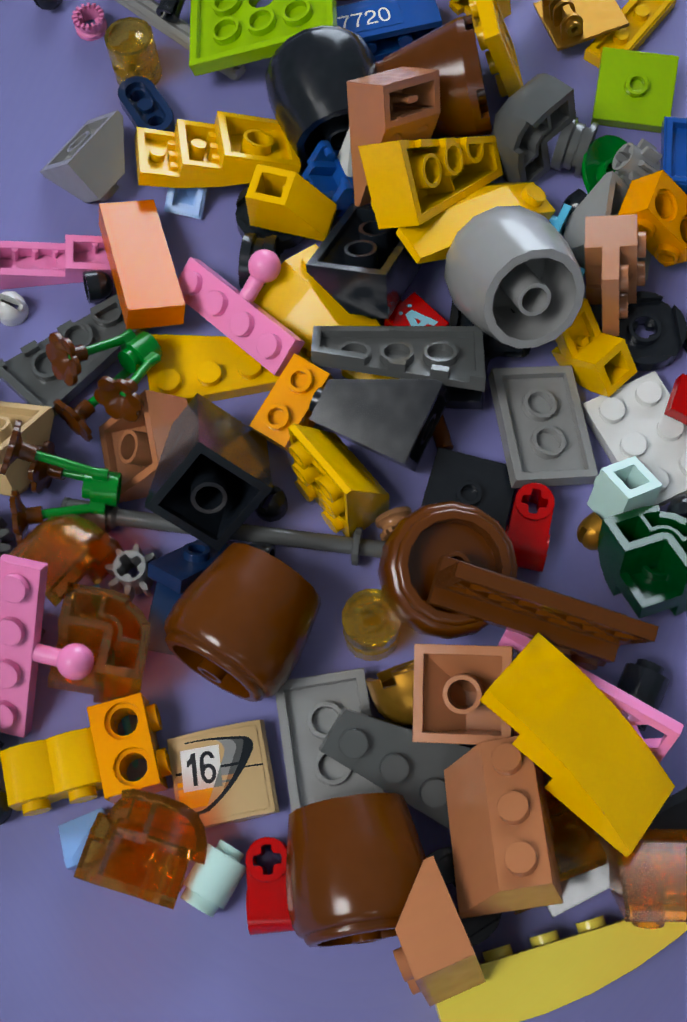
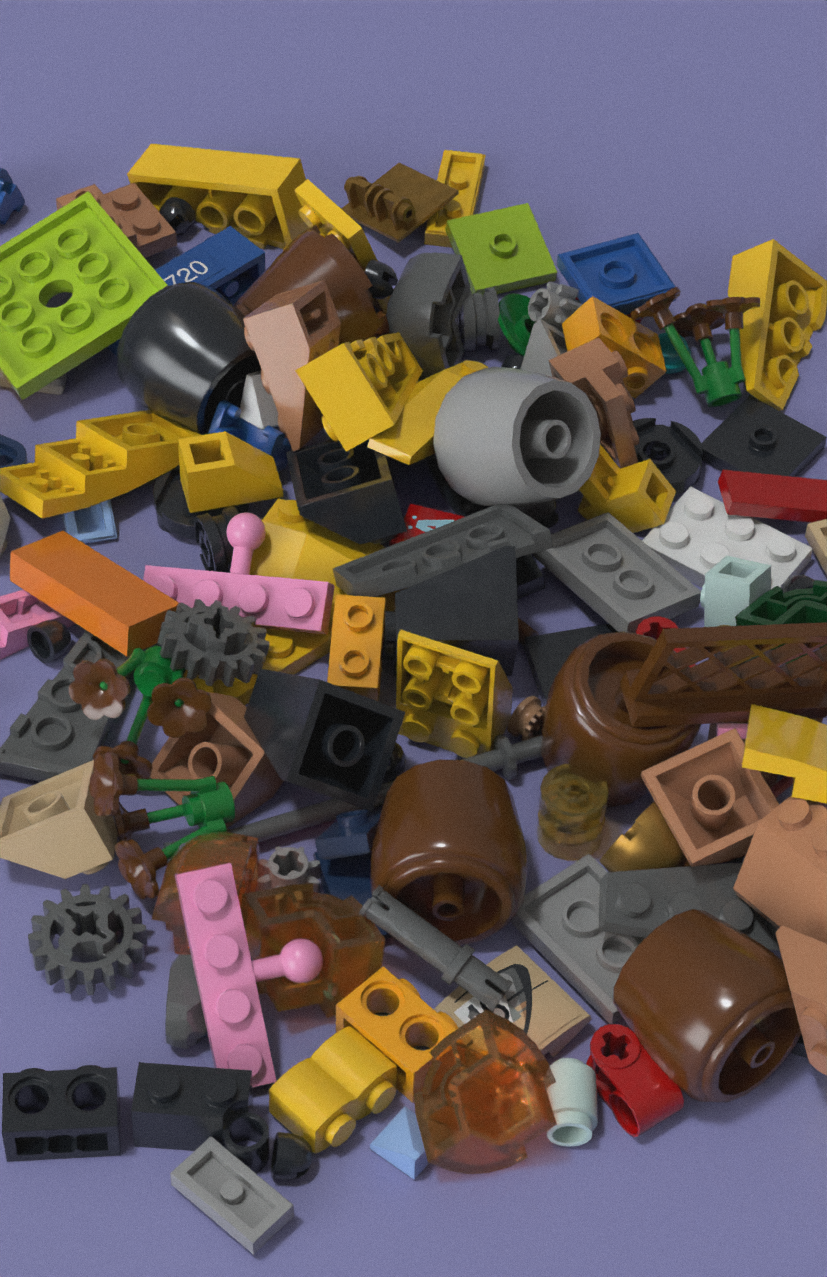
camera: 35 degrees left, 20 degrees down
(180, 703) = (436, 948): none -> dark grey pin
(190, 346) = (213, 642): none -> dark grey gear
(501, 81) = (382, 279): none -> black hinge

